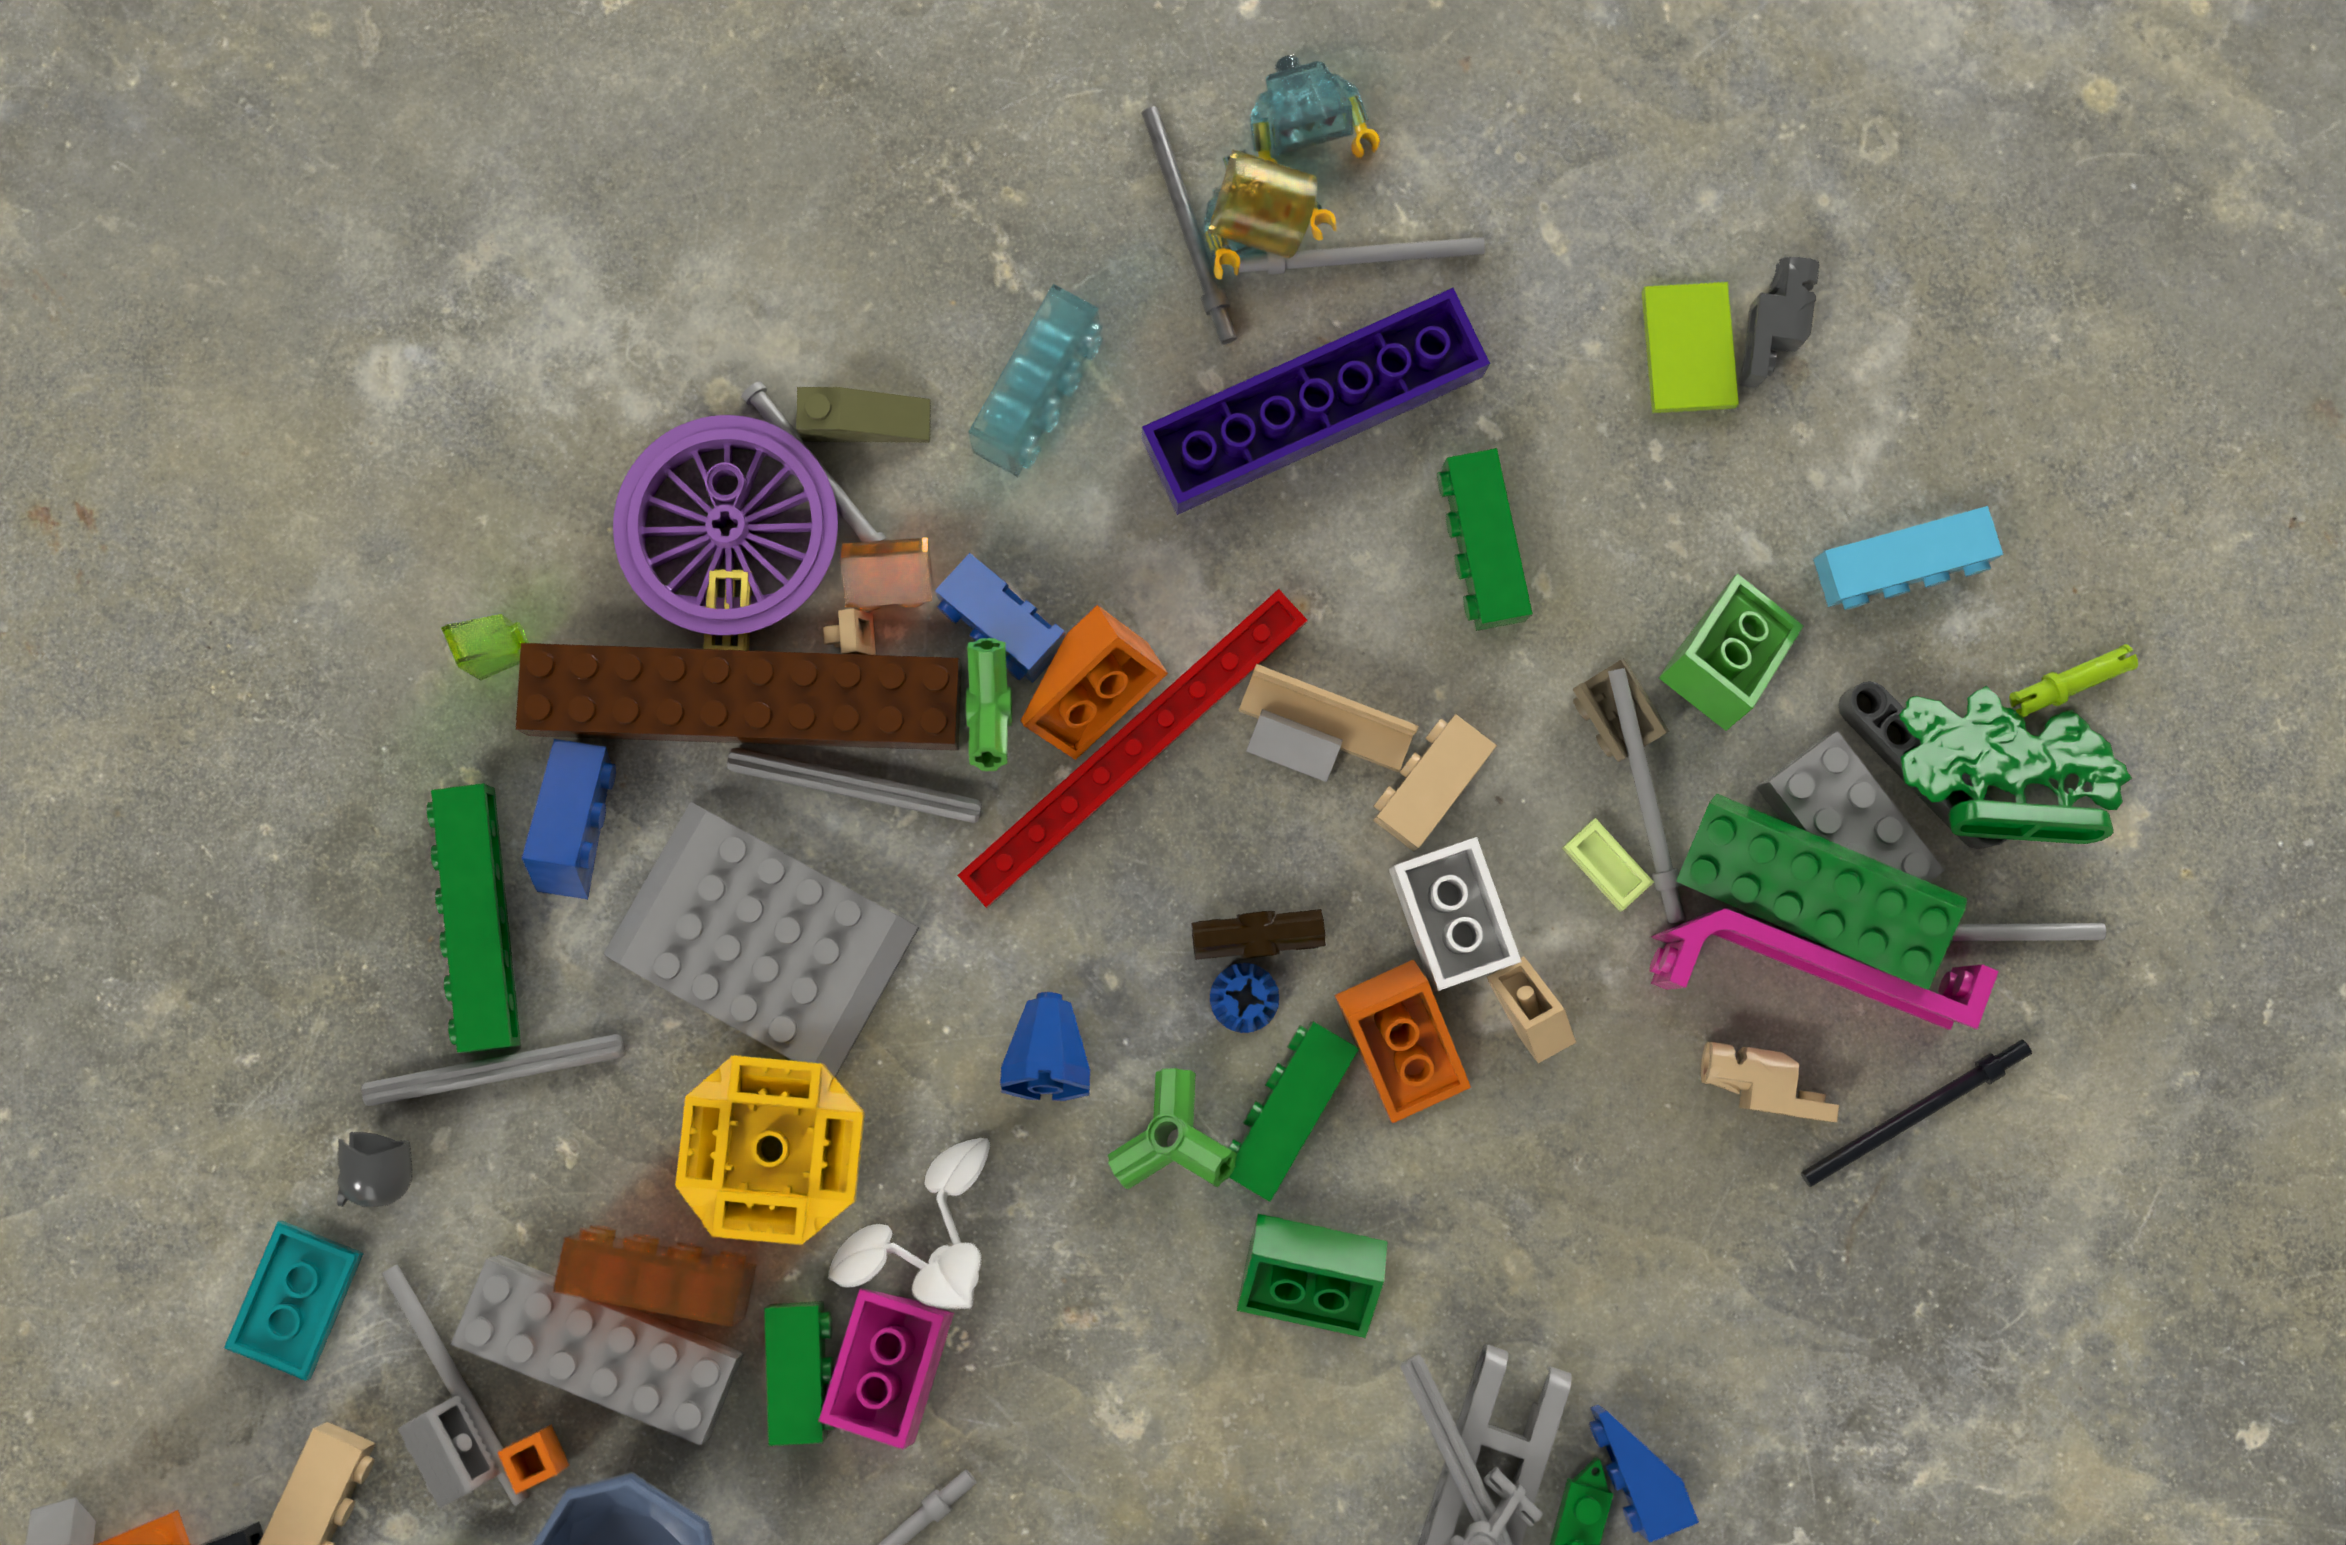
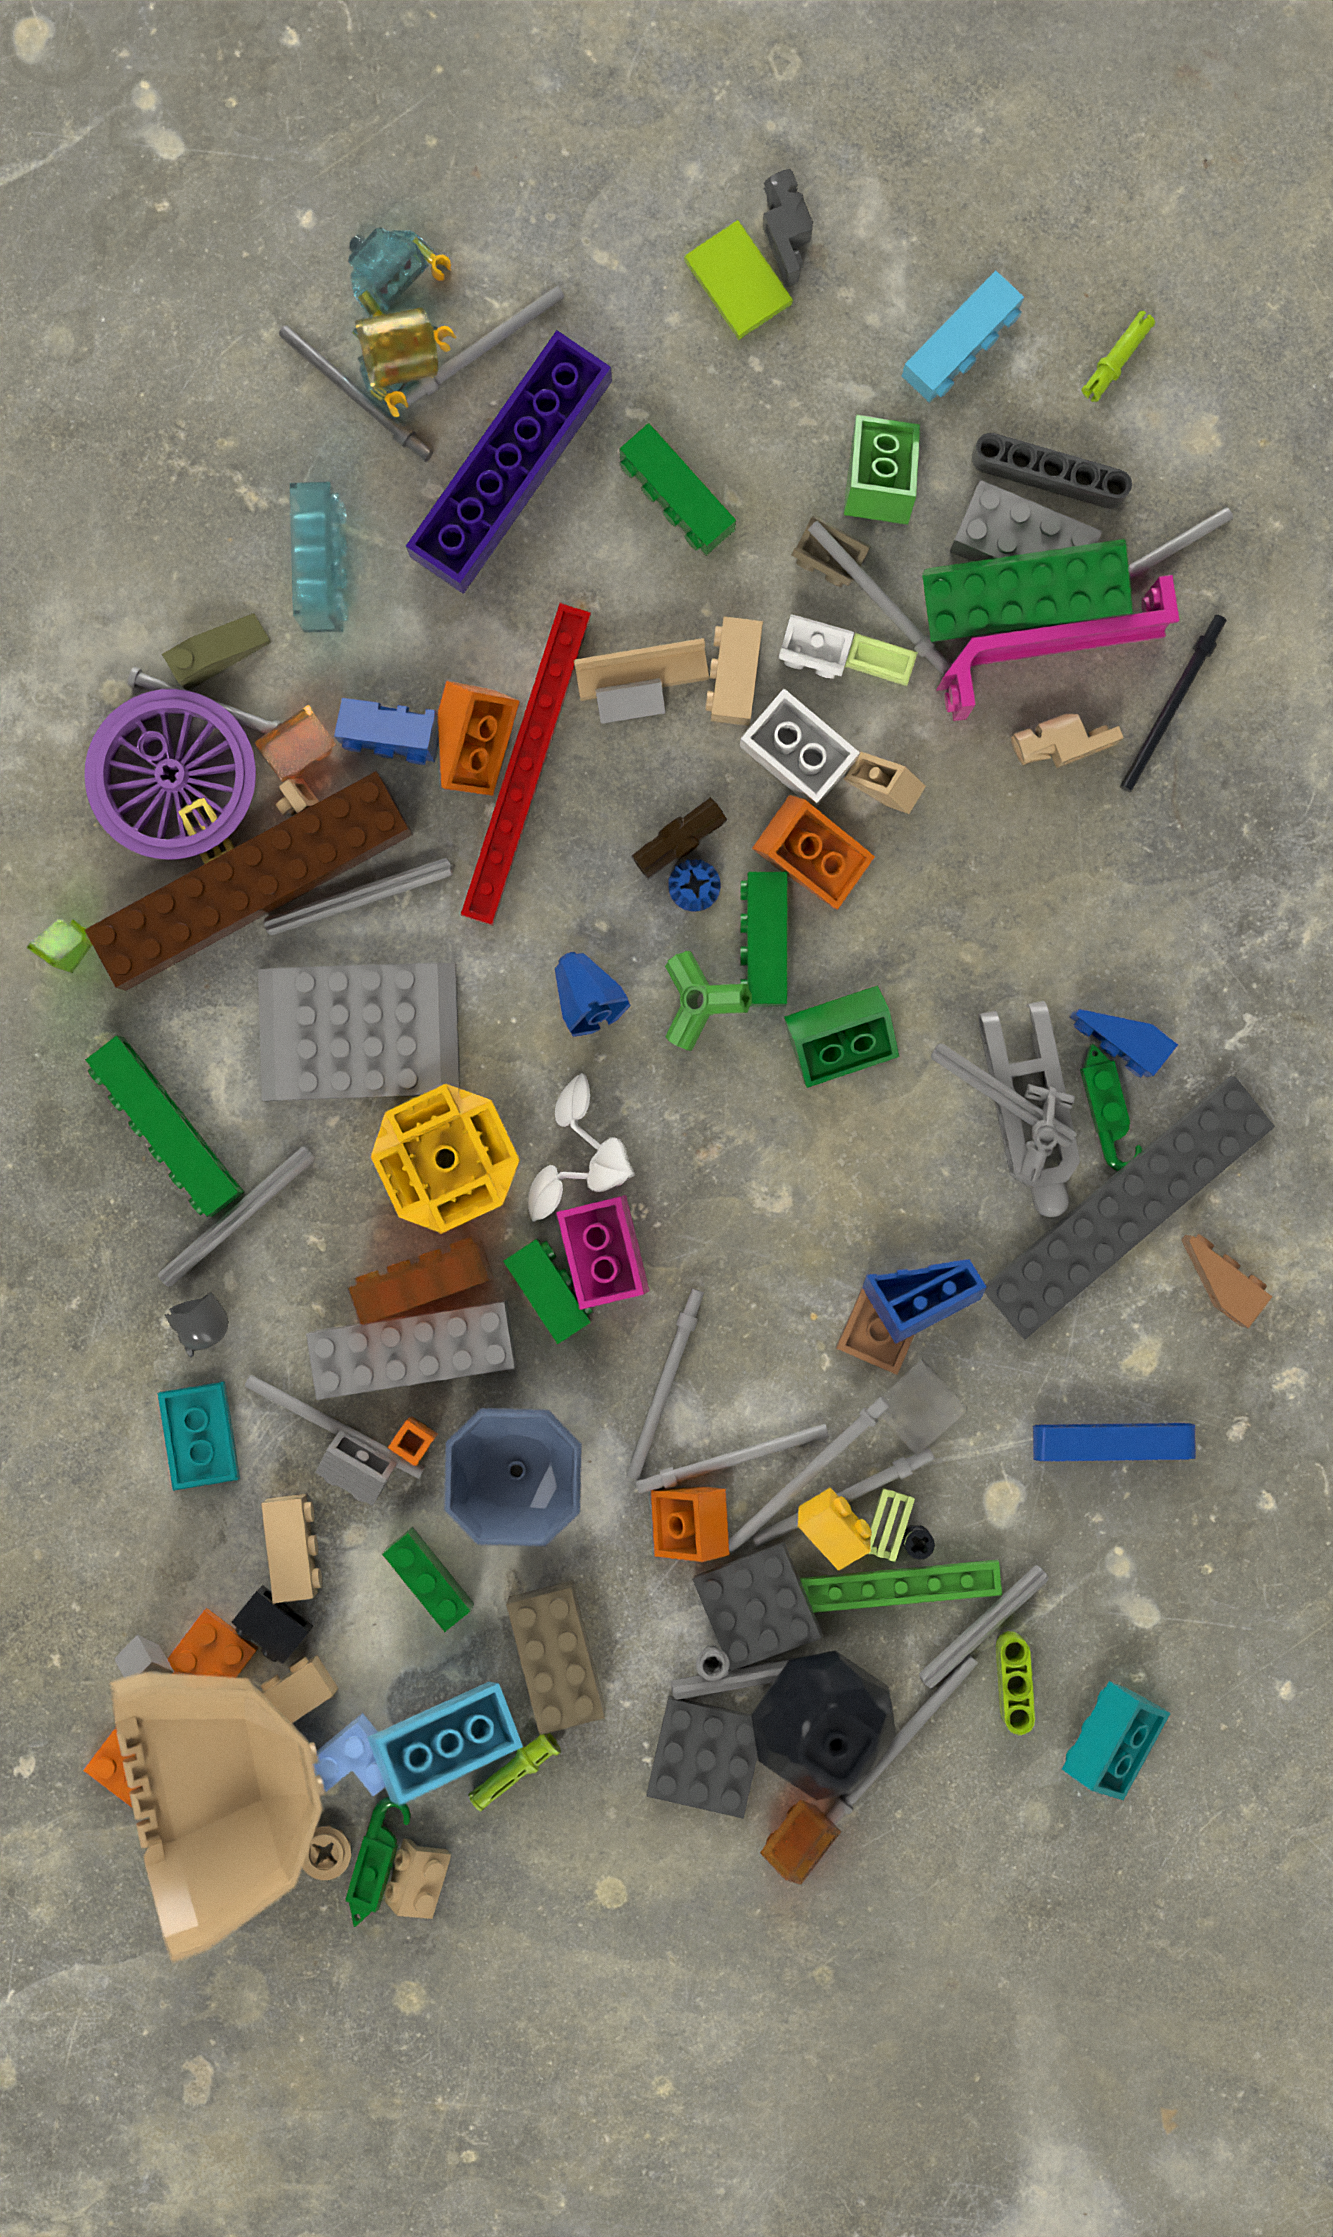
camera: 20 degrees left, 5 degrees up
(569, 819) = (186, 1026): blue wedge -> none
(988, 704) = (413, 787): bright green piece -> none
(1541, 808) = (815, 646): none -> white bracket
(1999, 752) = (1092, 431): plant -> none

